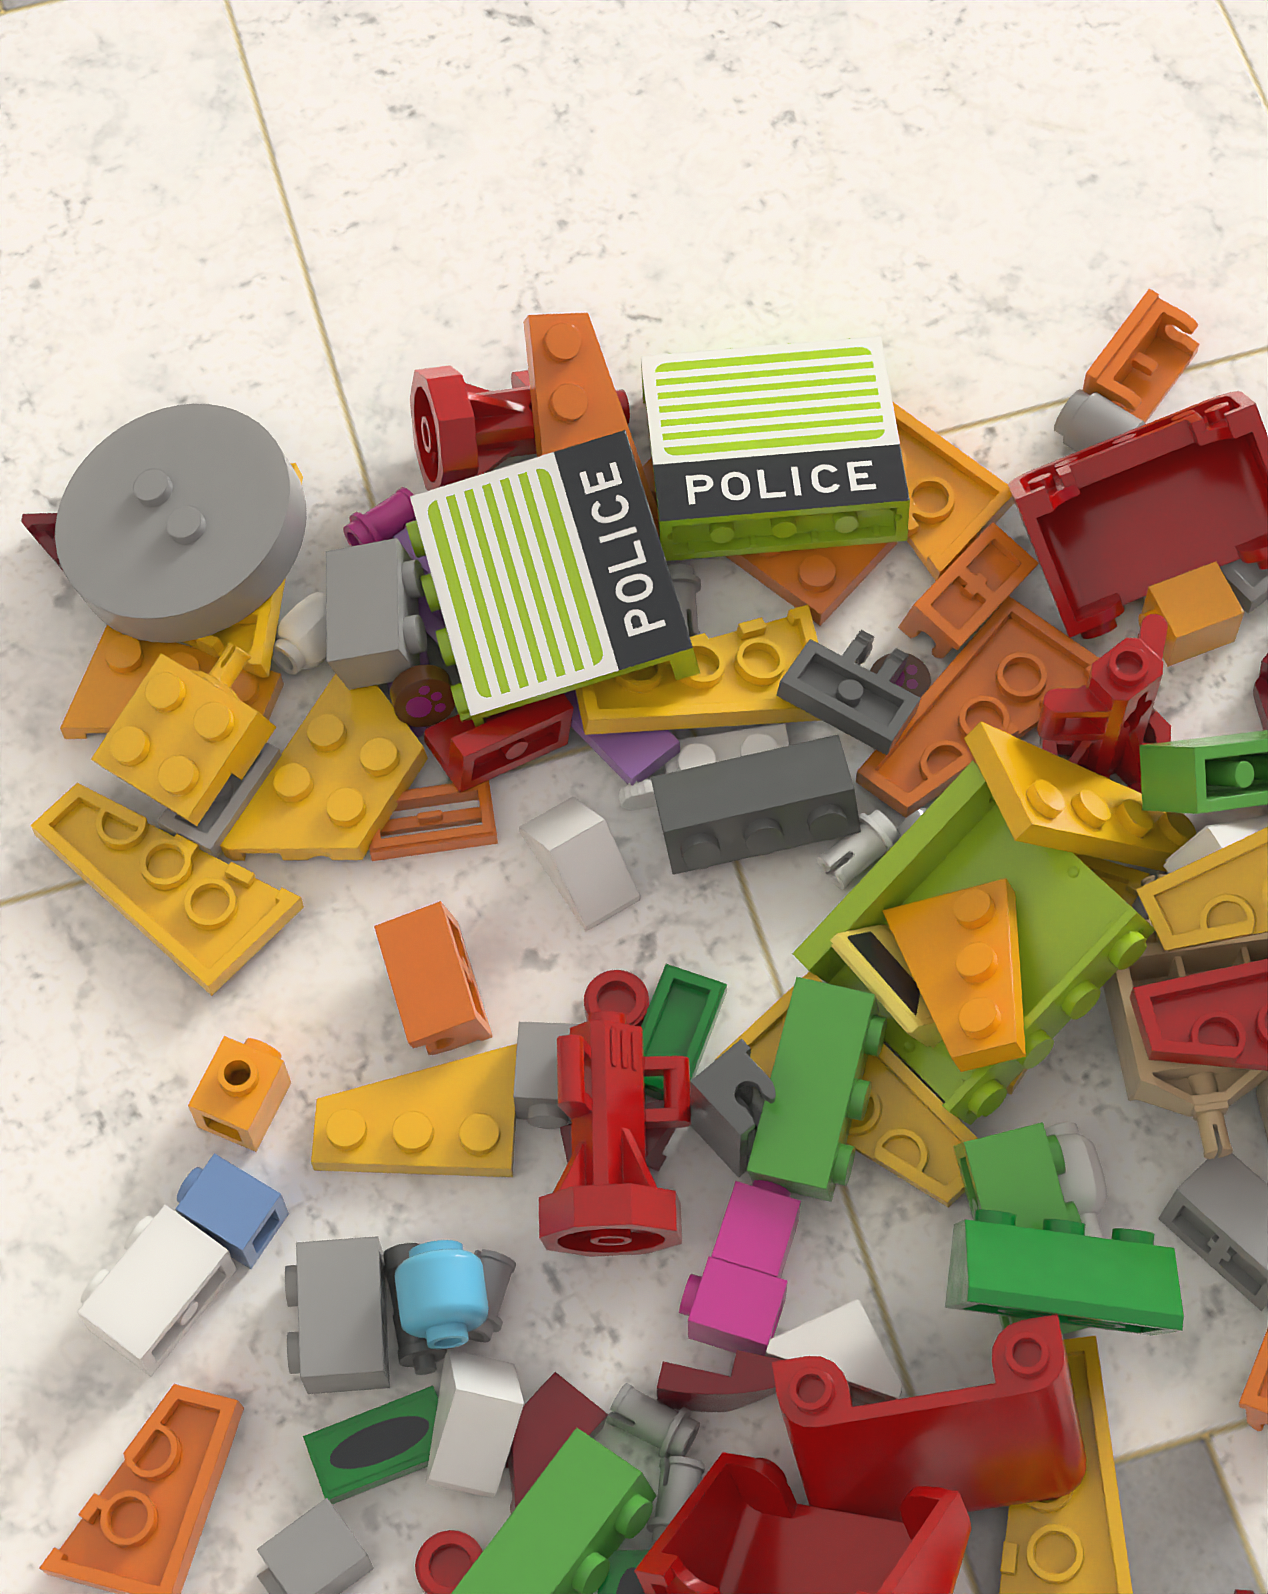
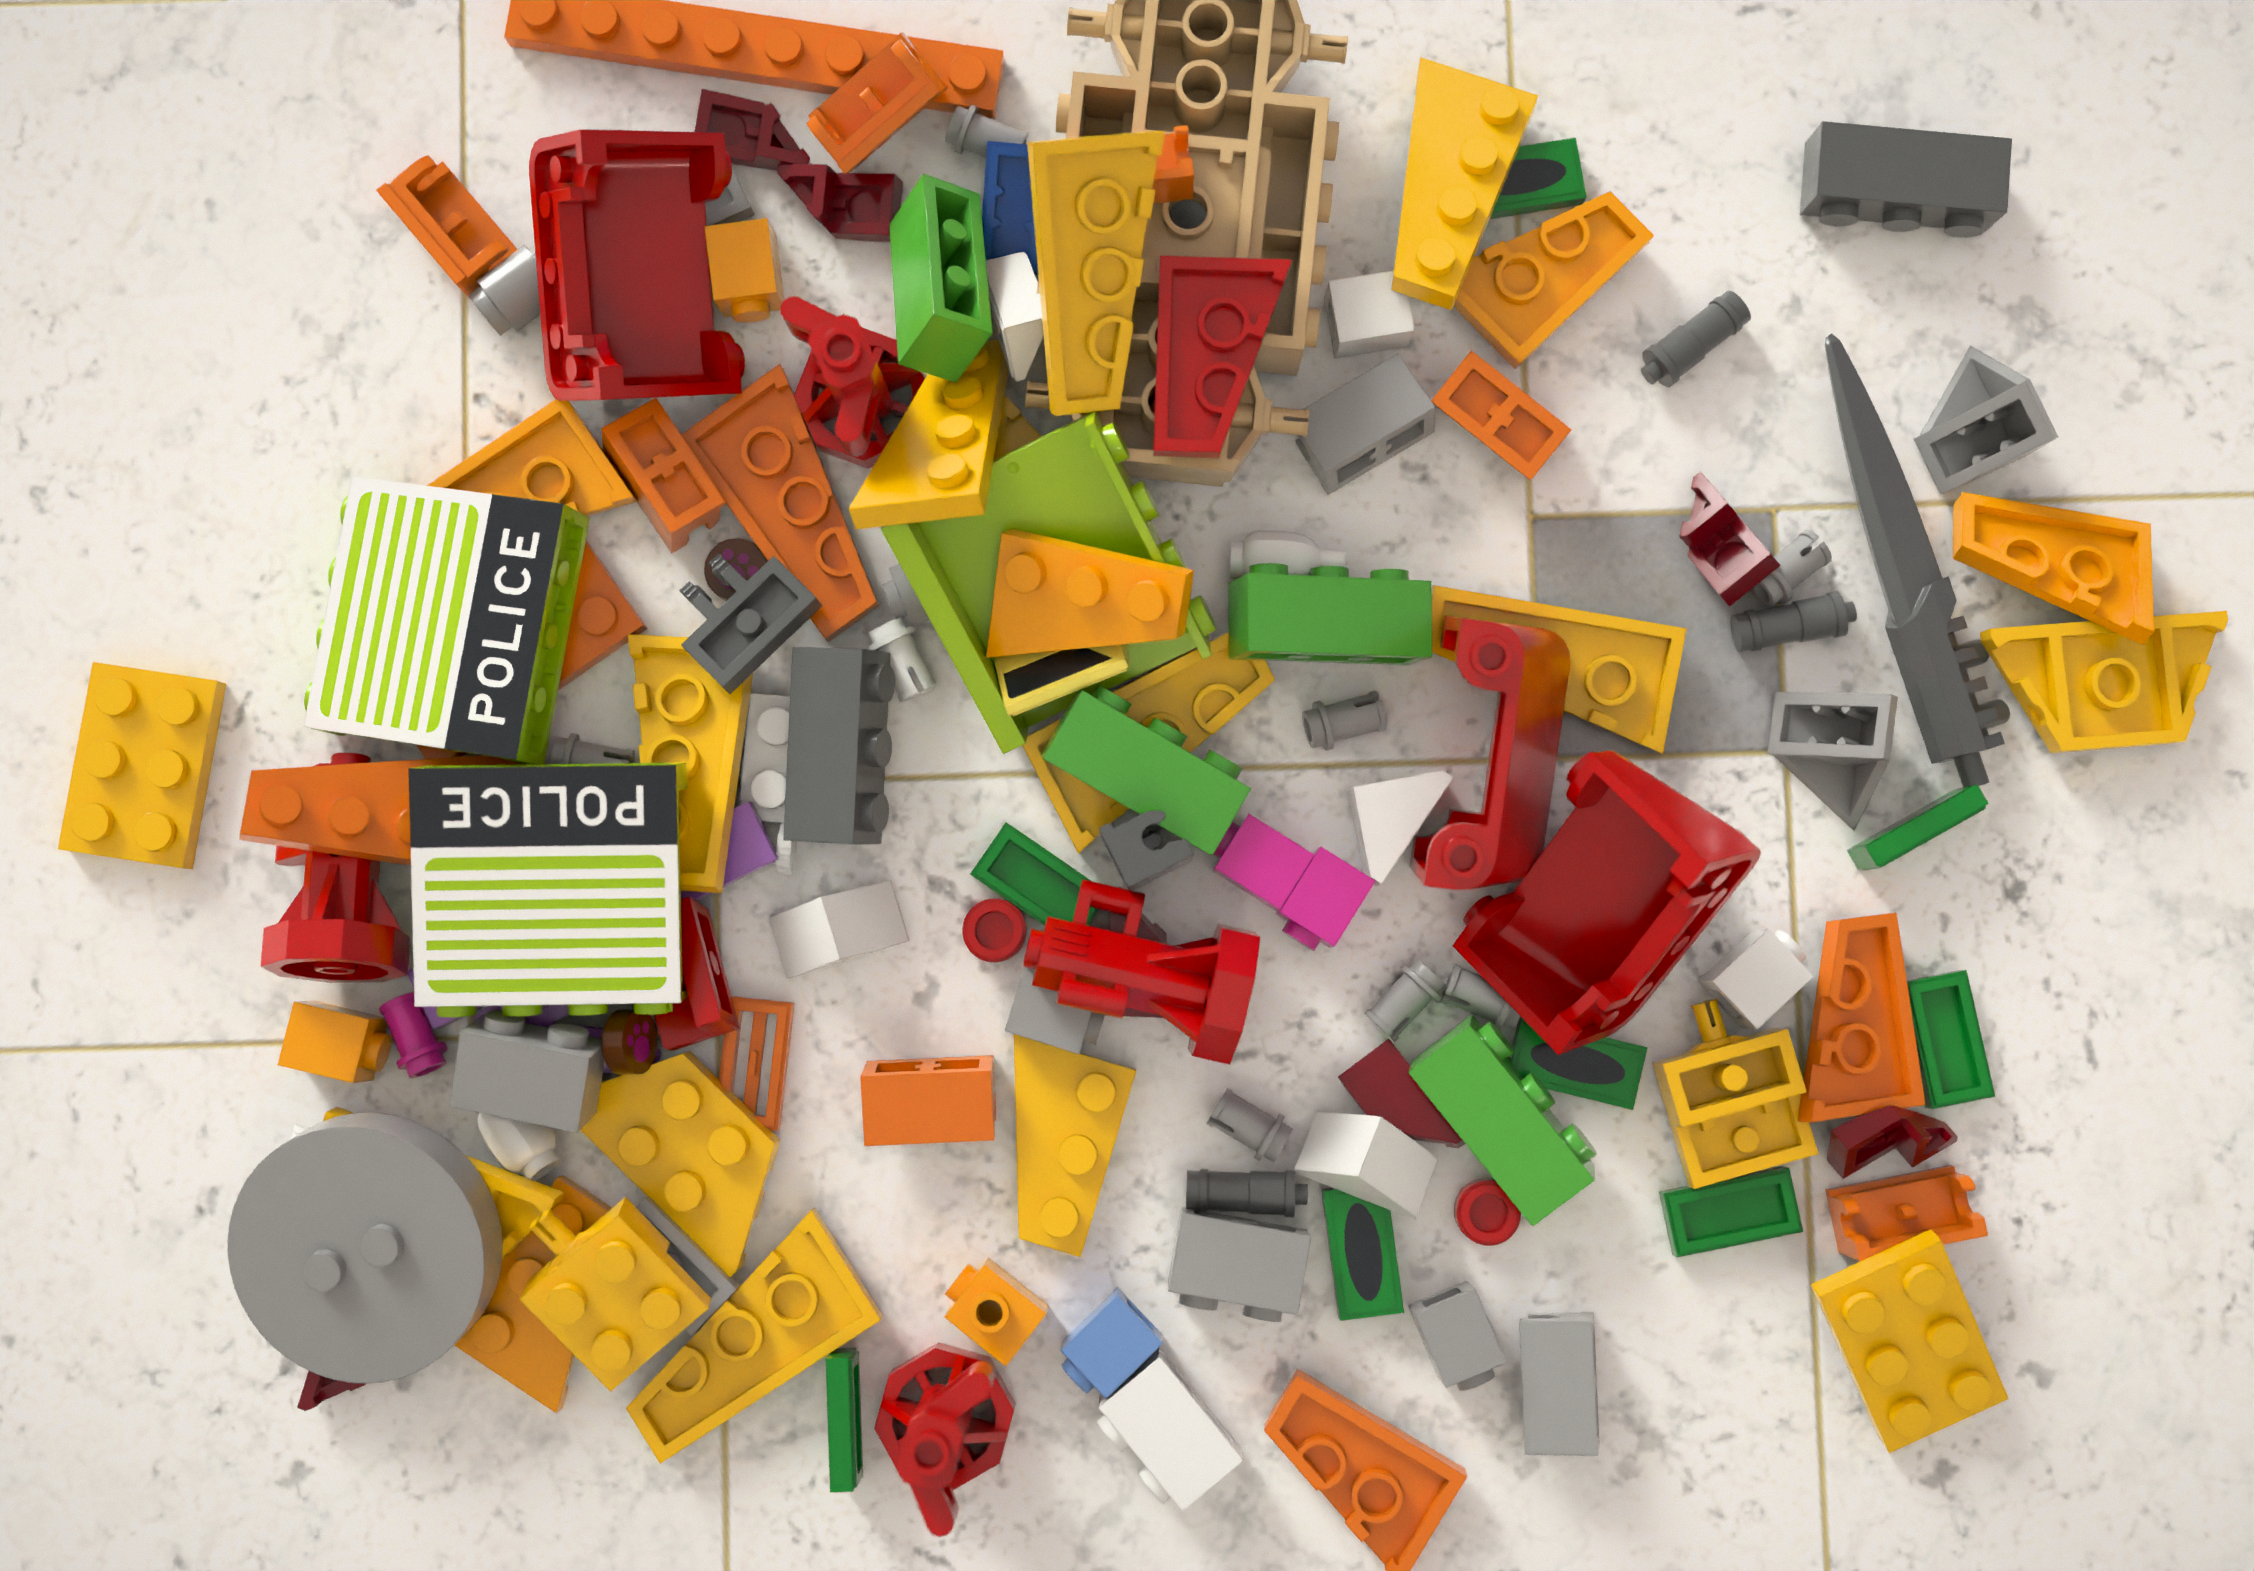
camera: 75 degrees left, 20 degrees up
(104, 979) = (844, 1419): none -> green tile
(121, 1053) = (943, 1427): none -> red piece
(361, 458) = (335, 1042): none -> light orange brick
(441, 1293) = (1256, 1167): medium azure head -> none
(570, 253) = (142, 765): none -> yellow plate
(713, 1392) = (1396, 906): dark red slope -> none
(925, 1284) = (1343, 720): none -> light grey pin
(1060, 1271) = (1405, 599): green slope -> none

